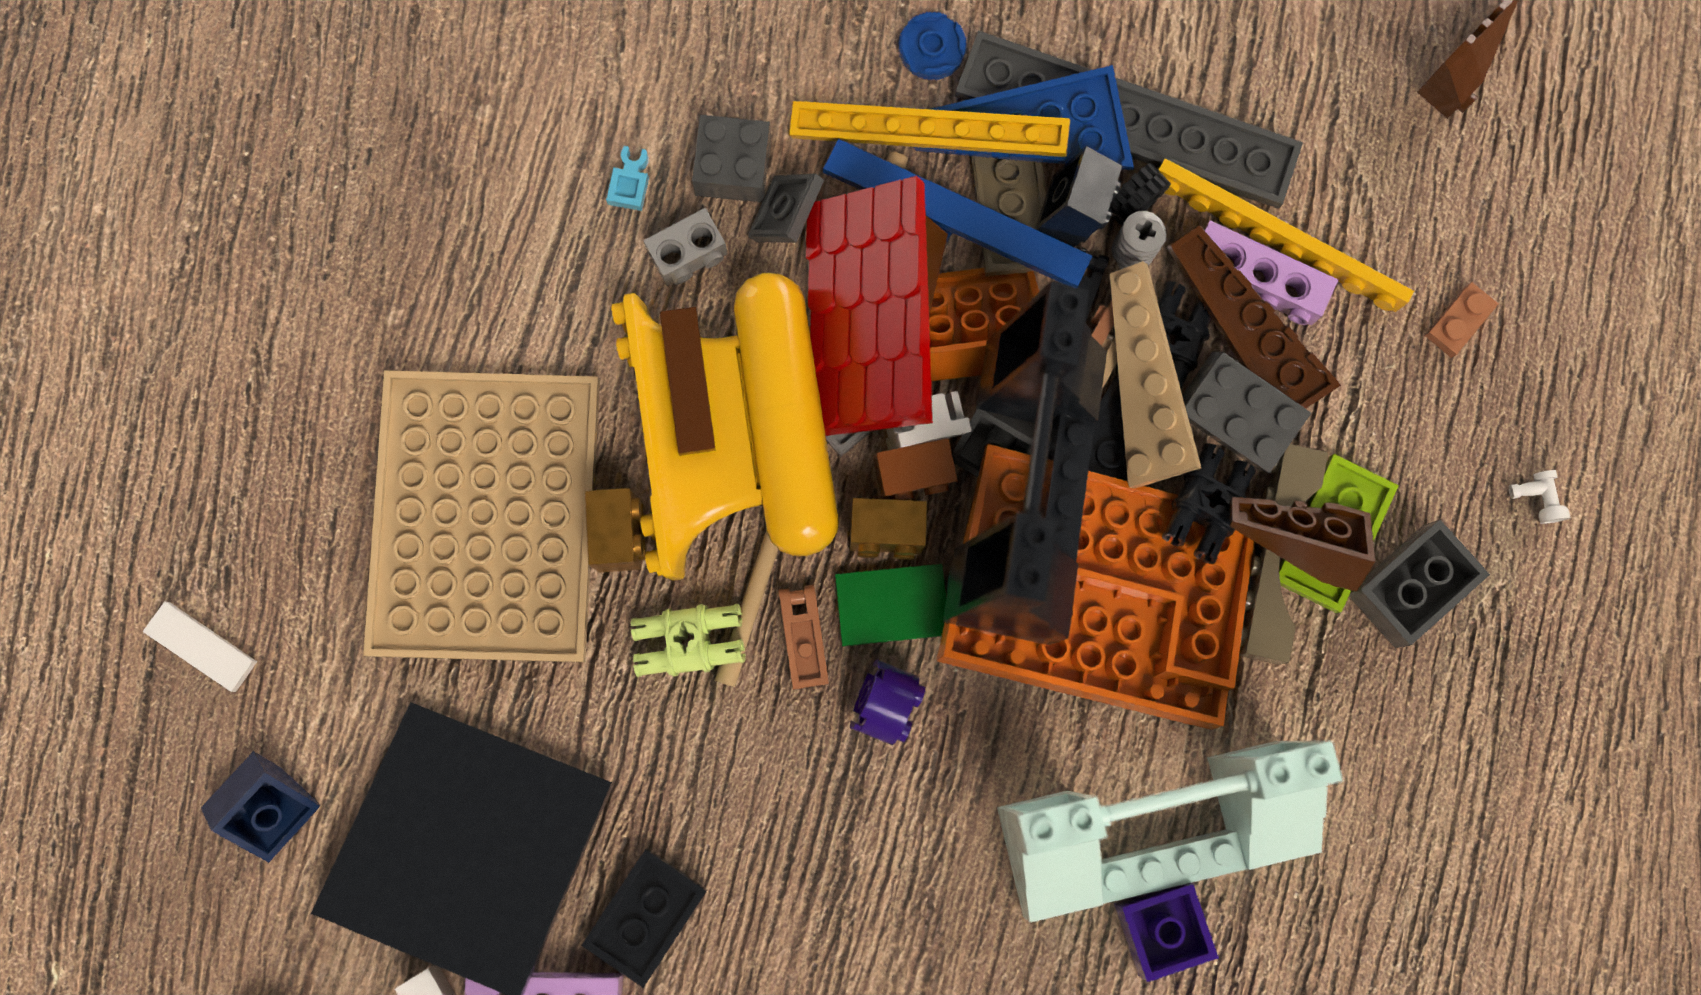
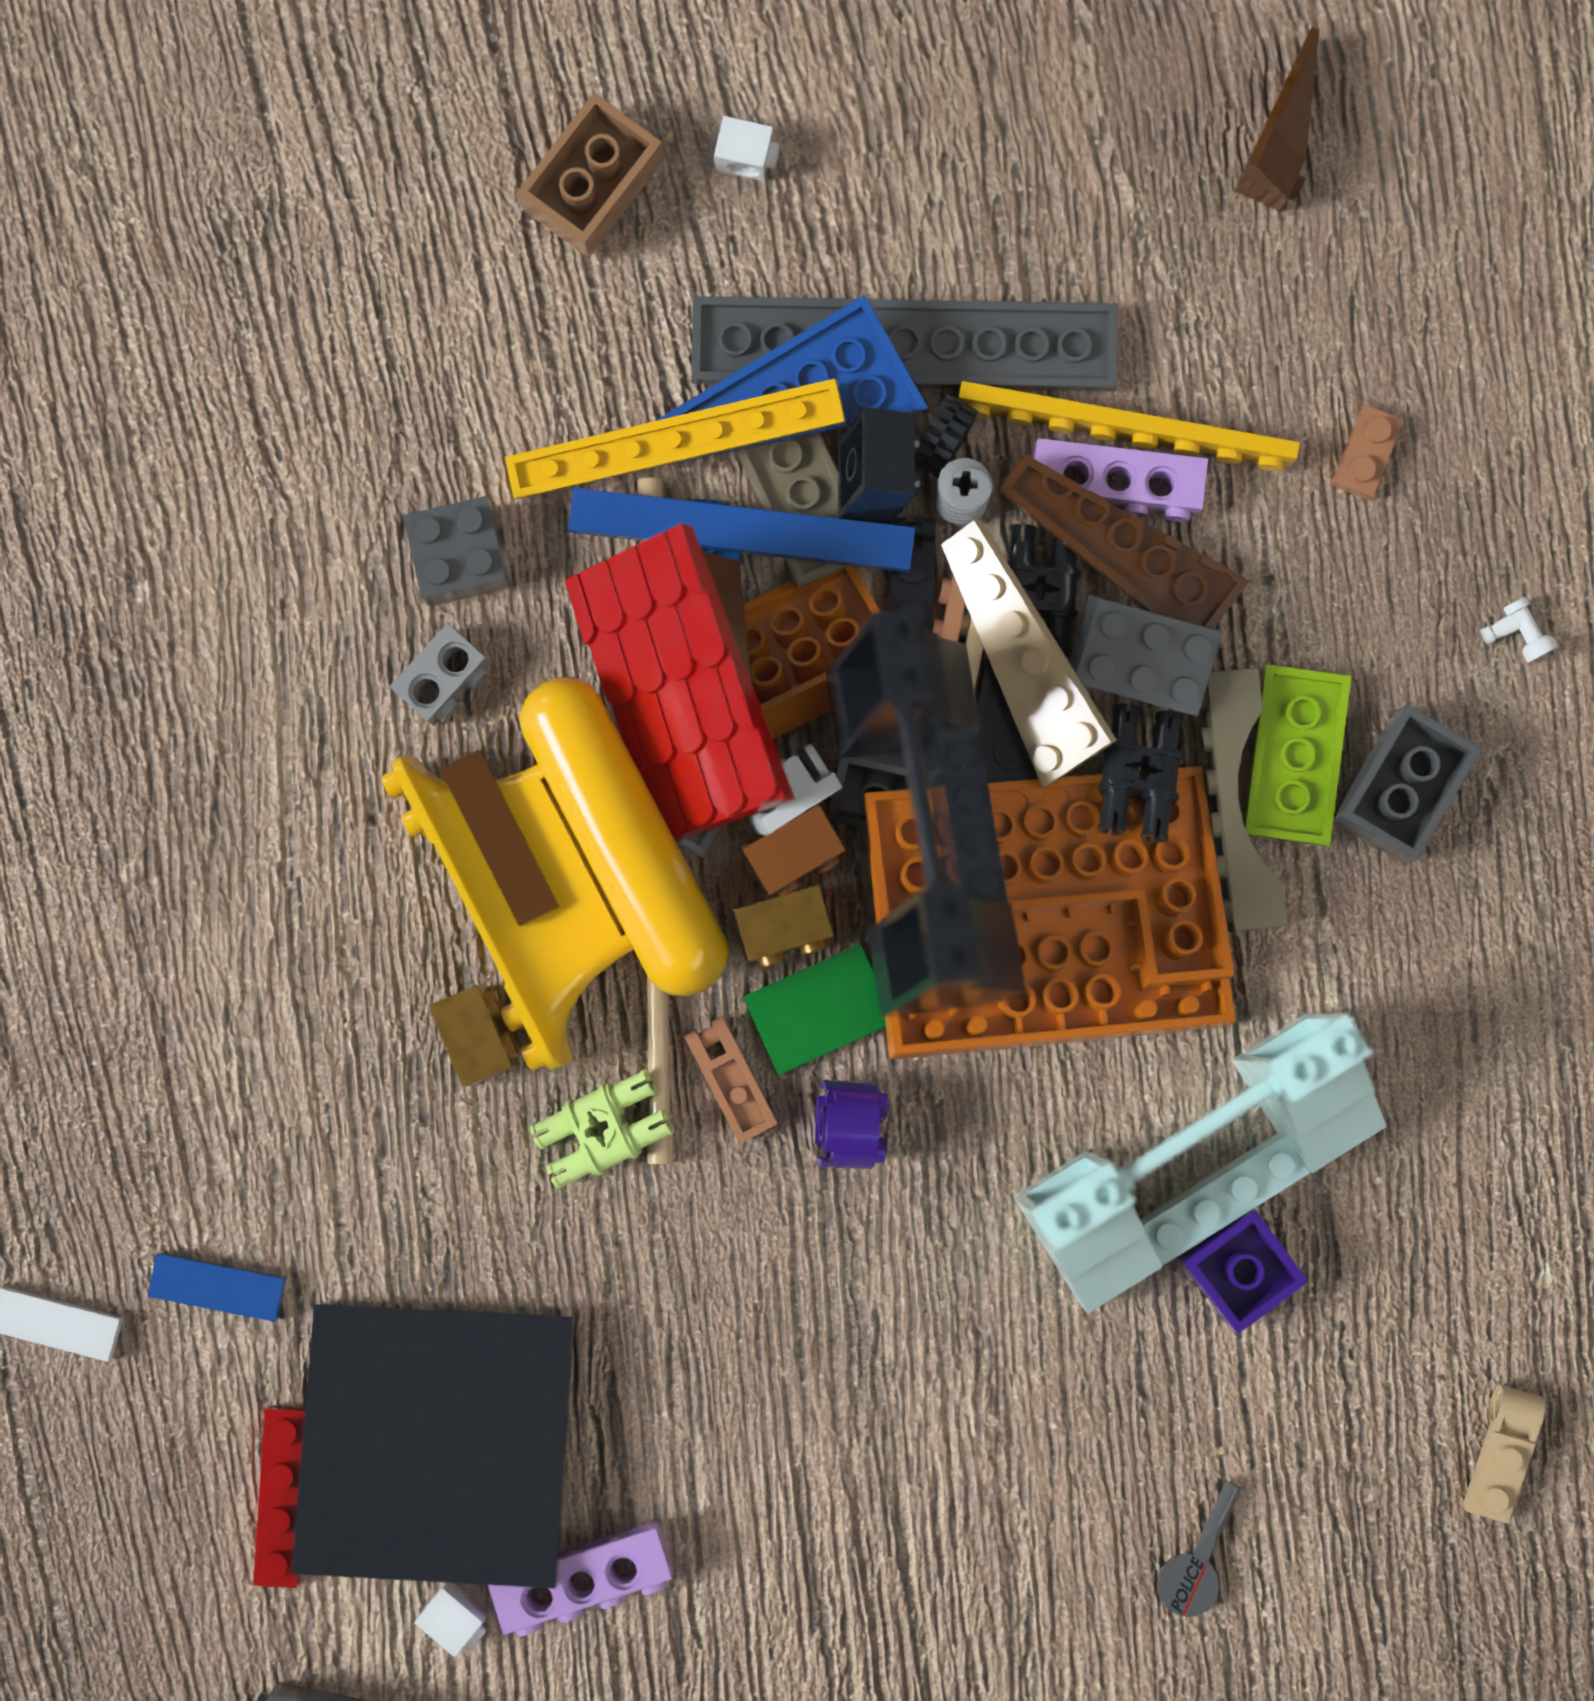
camera: 10 degrees left, 5 degrees up
(259, 807) = (188, 1478): dark blue slope -> none
(324, 848) = (278, 1497): none -> red plate
(339, 662) = (217, 1286): none -> blue tile
(482, 517) = (318, 1066): tan plate -> none
(629, 185) = (347, 623): medium azure plate -> none
(644, 917) = (661, 1451): black plate -> none
(785, 208) = (540, 591): dark grey tile -> none
(932, 46) = (645, 330): blue tile -> none
(1323, 542) = (1278, 775): reddish brown wedge -> none

